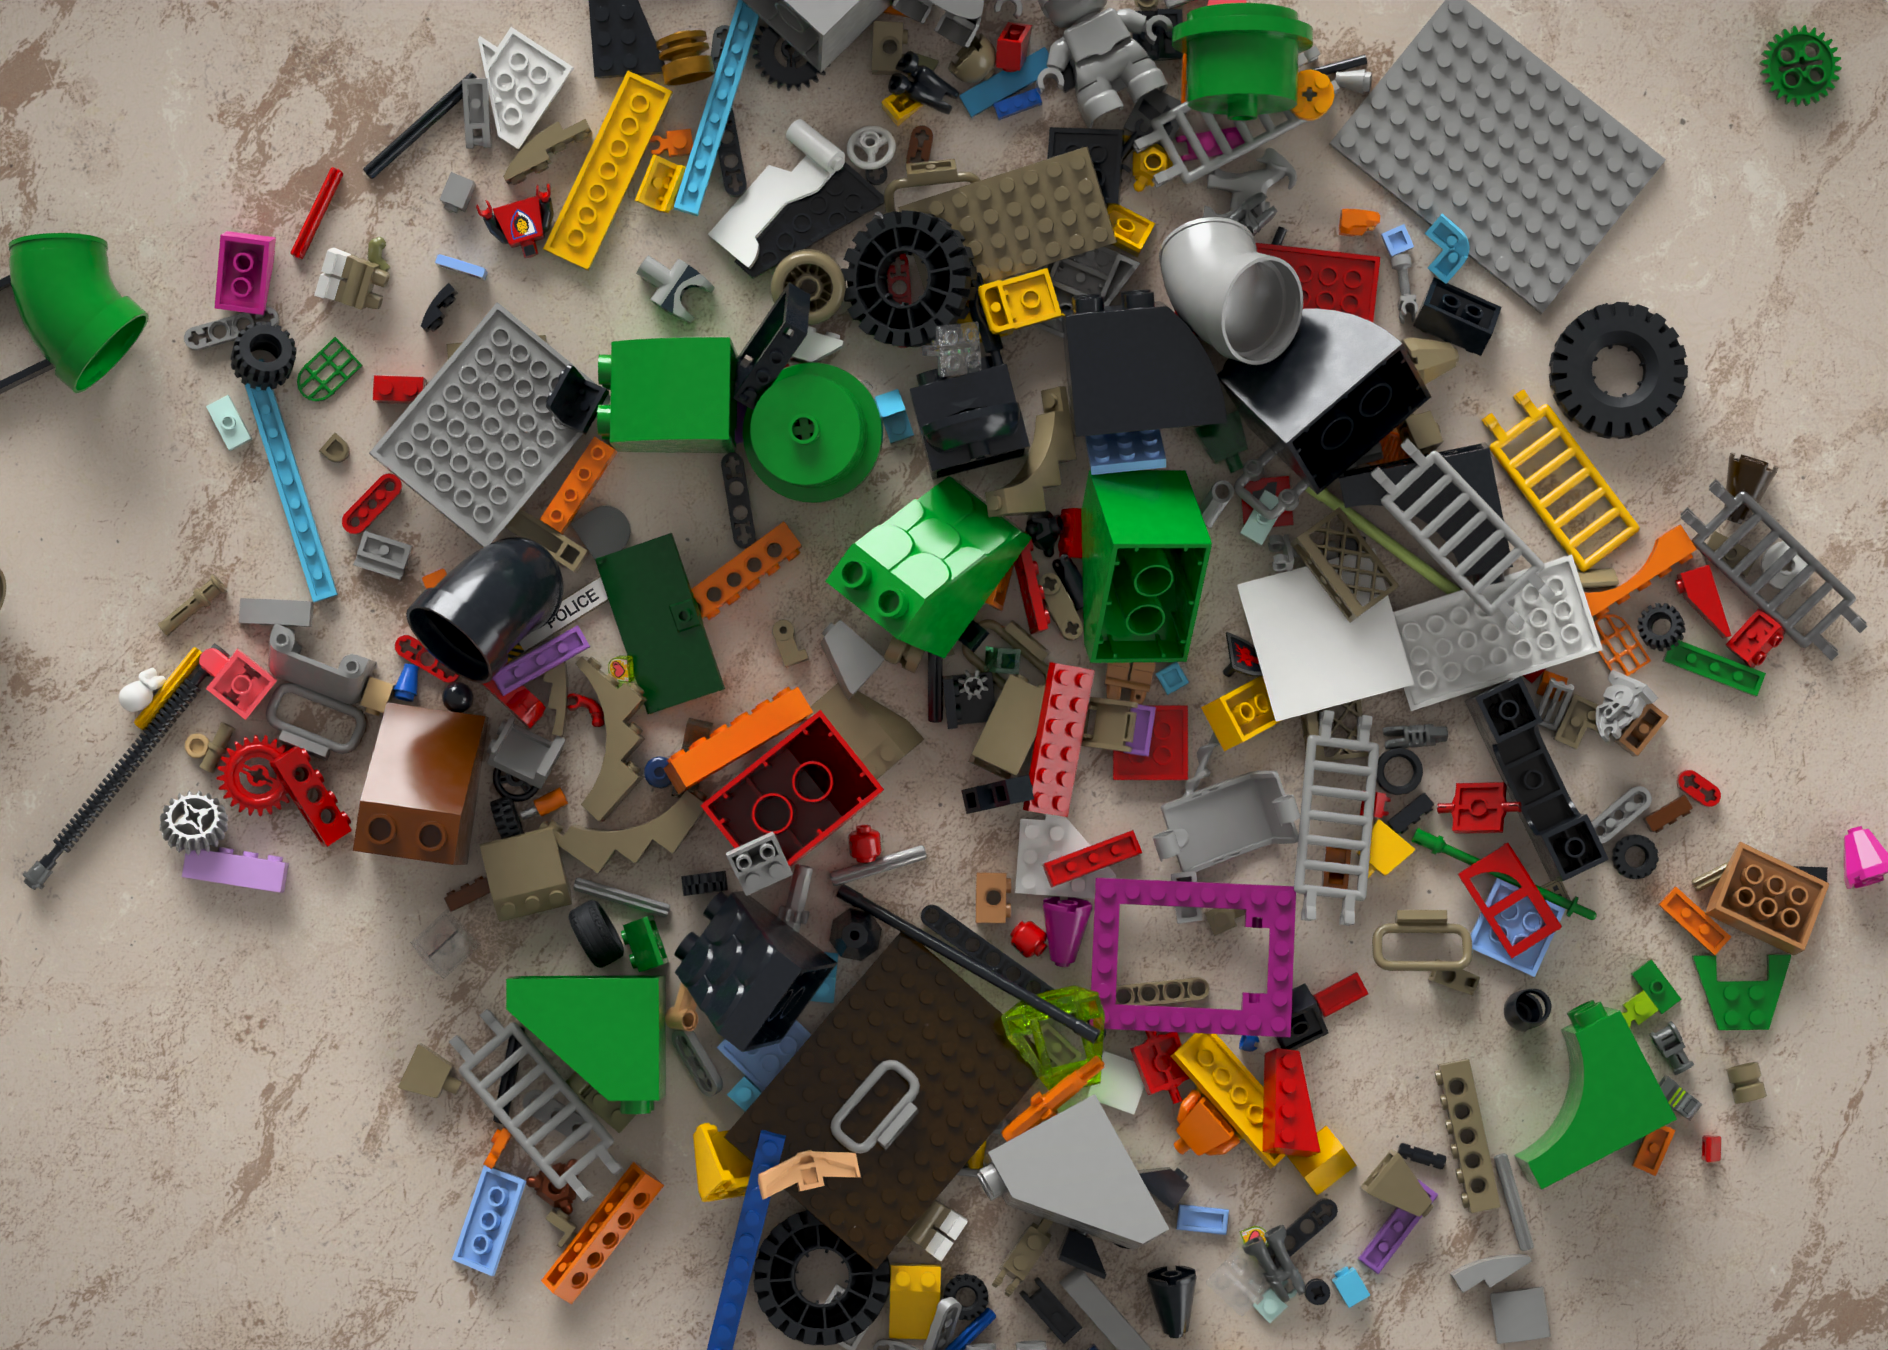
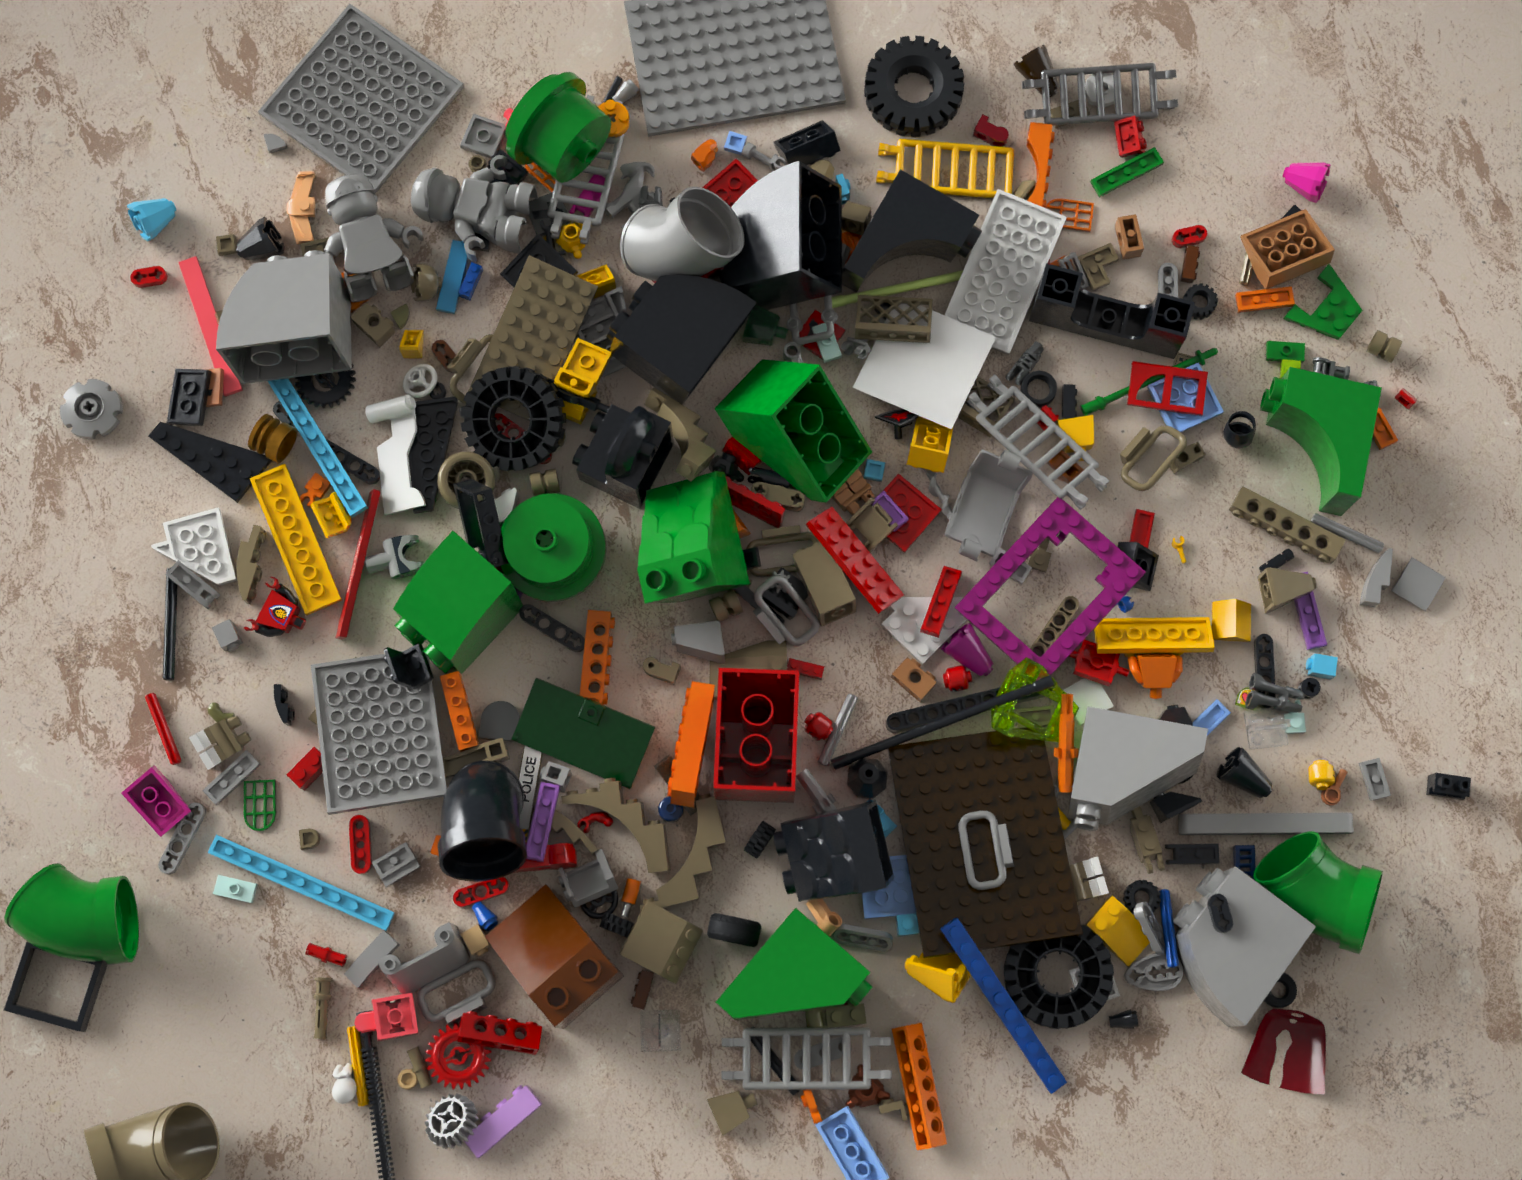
camera: 50 degrees left, 10 degrees down
(243, 566) = (326, 954): none -> red pin
(258, 372) = (208, 820): black tyre -> none
(328, 322) = (231, 777): none -> light grey plate
(457, 697) = (519, 892): black piece -> none
(461, 267) = (272, 670): light blue tile -> none
(599, 623) = (552, 769): none -> light grey brick
(621, 897) = (725, 898): light grey axle -> none
(622, 668) = (589, 779): tile -> none
(635, 255) = (358, 564): none -> red tile
(644, 943) = (765, 906): green slope -> none
(759, 863) = (779, 780): light grey brick -> none
(807, 1171) = (988, 922): light nougat plate -> none
(874, 364) = (544, 482): none -> dark tan wheel
(894, 416) = (590, 498): medium azure slope -> none
(911, 782) = (806, 668): none -> red piece
(926, 713) = (771, 621): none -> light grey bar
(927, 85) = (414, 321): black piece -> none
(956, 349) = (577, 422): clear bracket -> none
(997, 794) = (857, 620): black arch -> none
(1002, 660) = (779, 553): clear green brick -> none
(1013, 46) = (436, 255): red slope -> none
(1125, 451) = (719, 381): light blue plate -> none
(1287, 1106) = (1184, 611): red wedge -> none
(1353, 1048) = (1178, 546): none -> yellow hand
(1439, 555) = (878, 241): light grey bar -> none
(1444, 392) = (845, 187): none -> medium azure bracket
(1454, 246) = (768, 115): medium azure plate -> none
(1479, 807) = (1099, 360): red plate -> none
(1621, 704) = (1106, 232): light grey piece -> none
(1634, 492) = (990, 133): none -> dark red leg
(1668, 639) = (1073, 172): black tyre -> none
(1701, 593) = (1083, 145): red slope -> none

